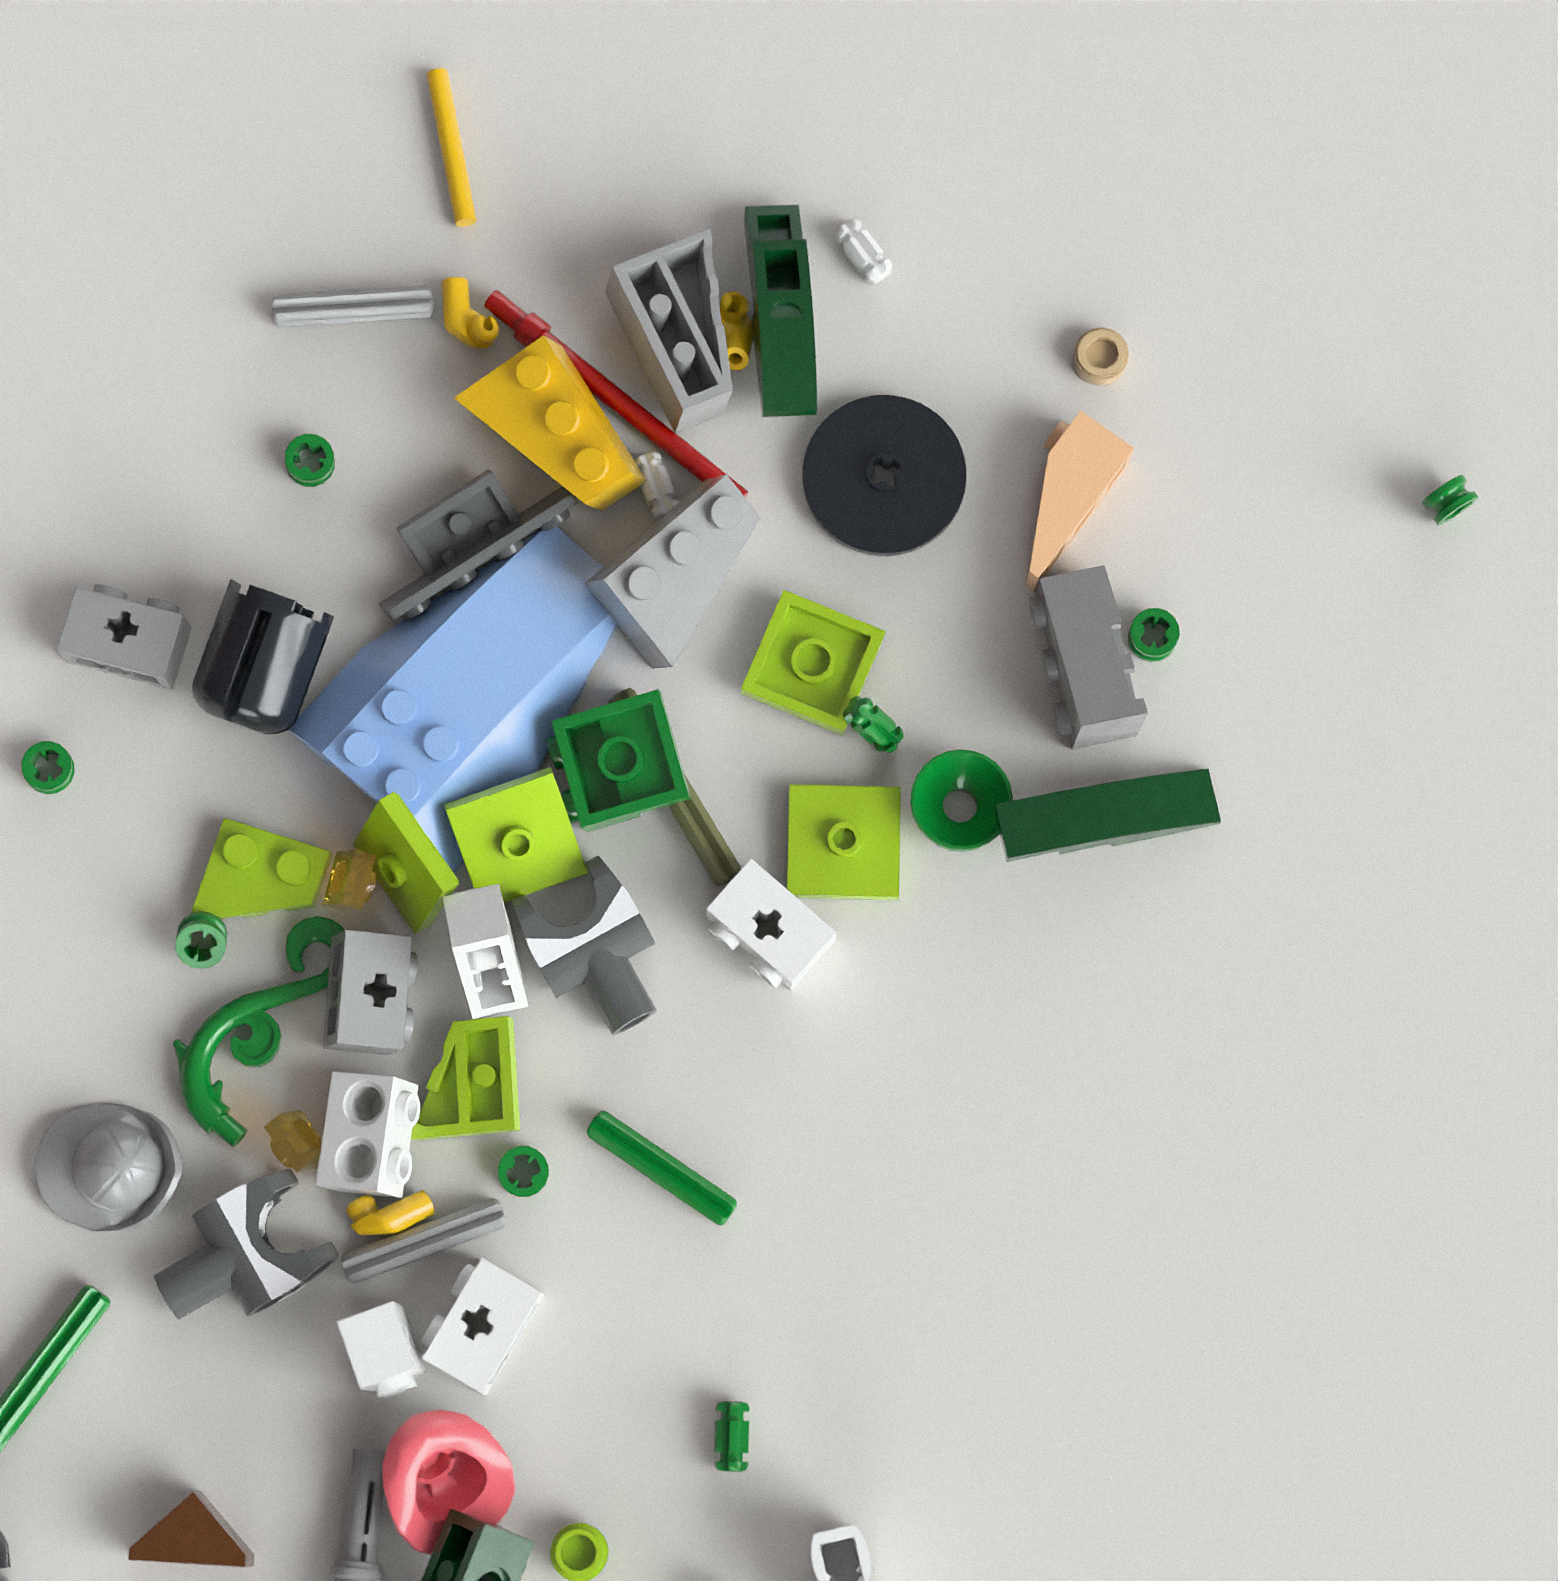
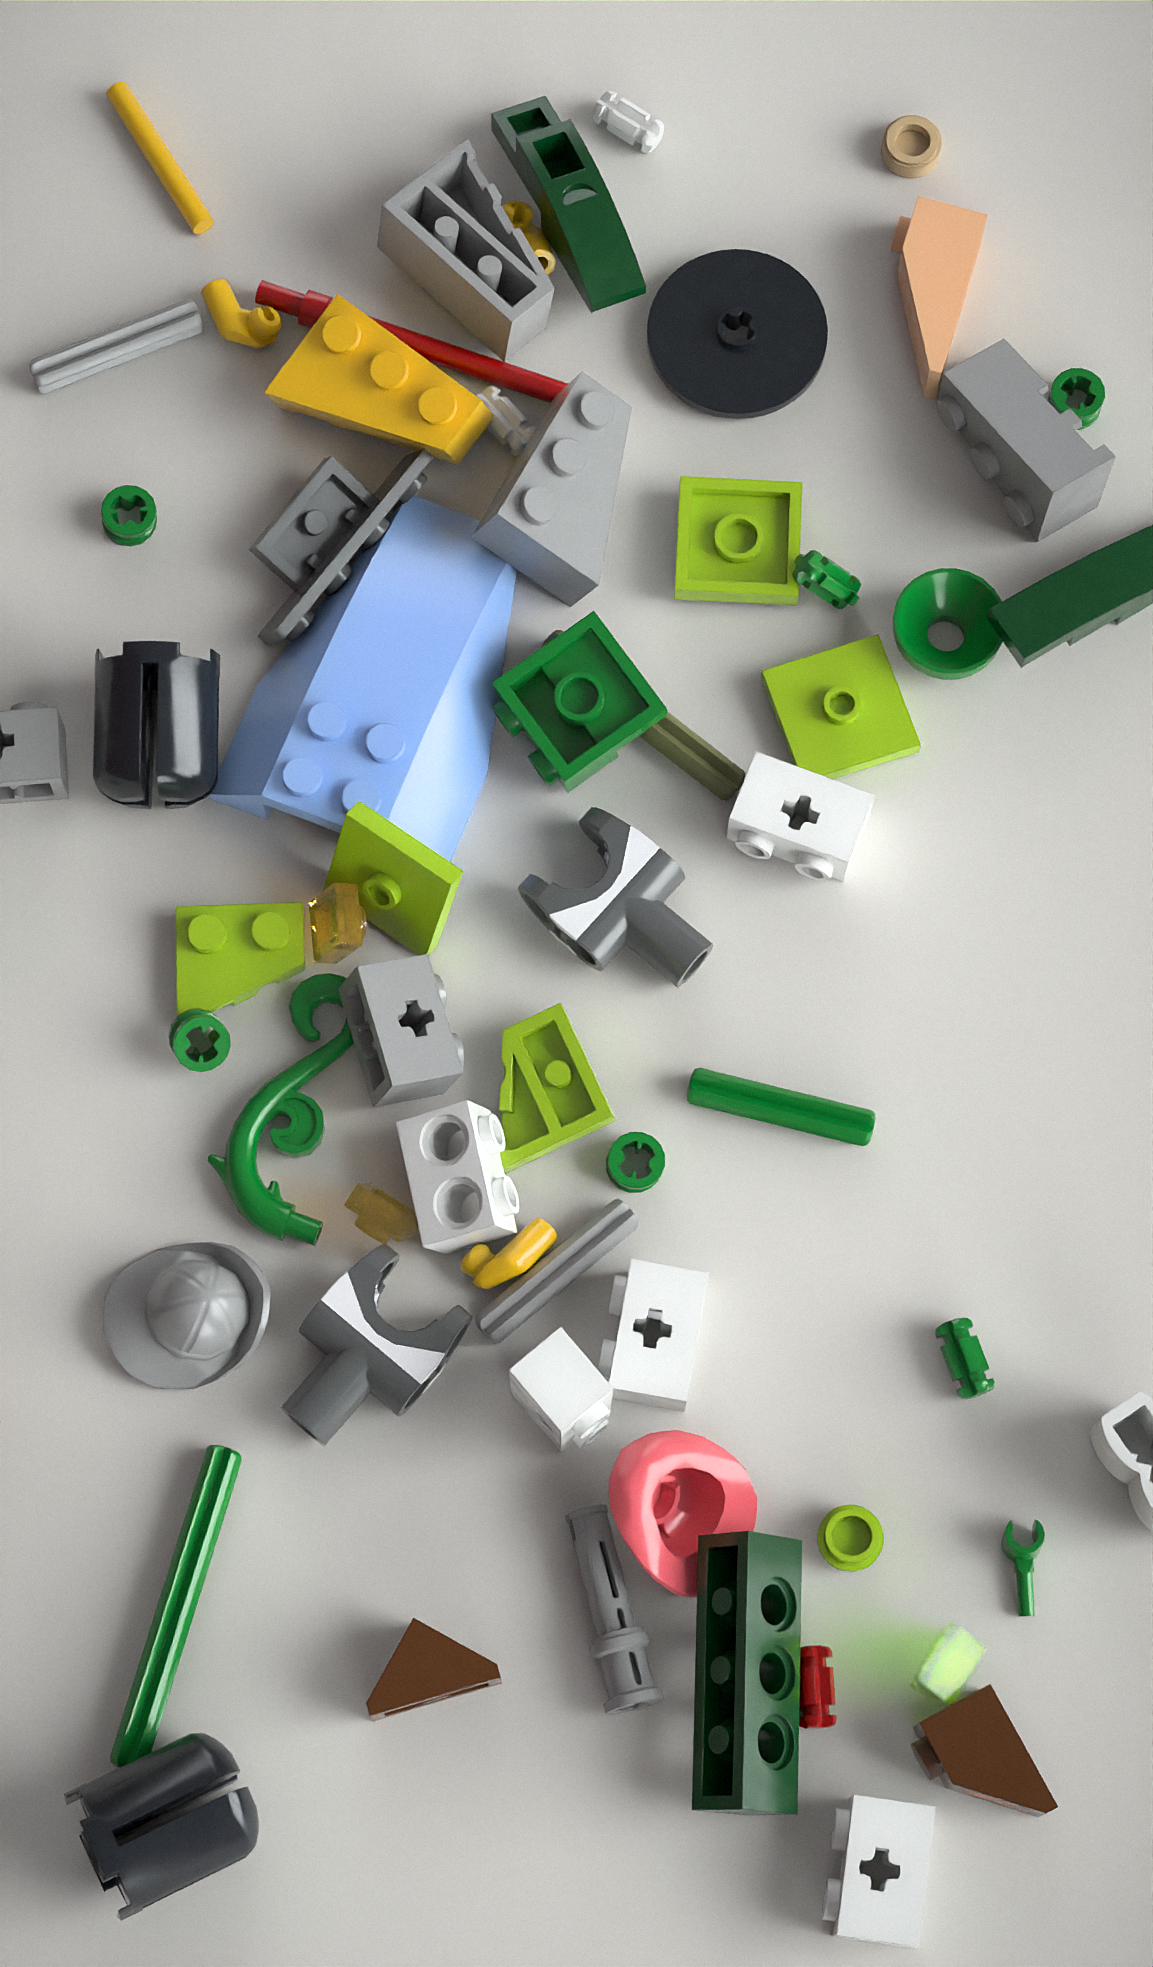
camera: 20 degrees left, 5 degrees down
(485, 951) = (514, 938): white brick -> none
(517, 836) = (498, 818): lime plate -> none

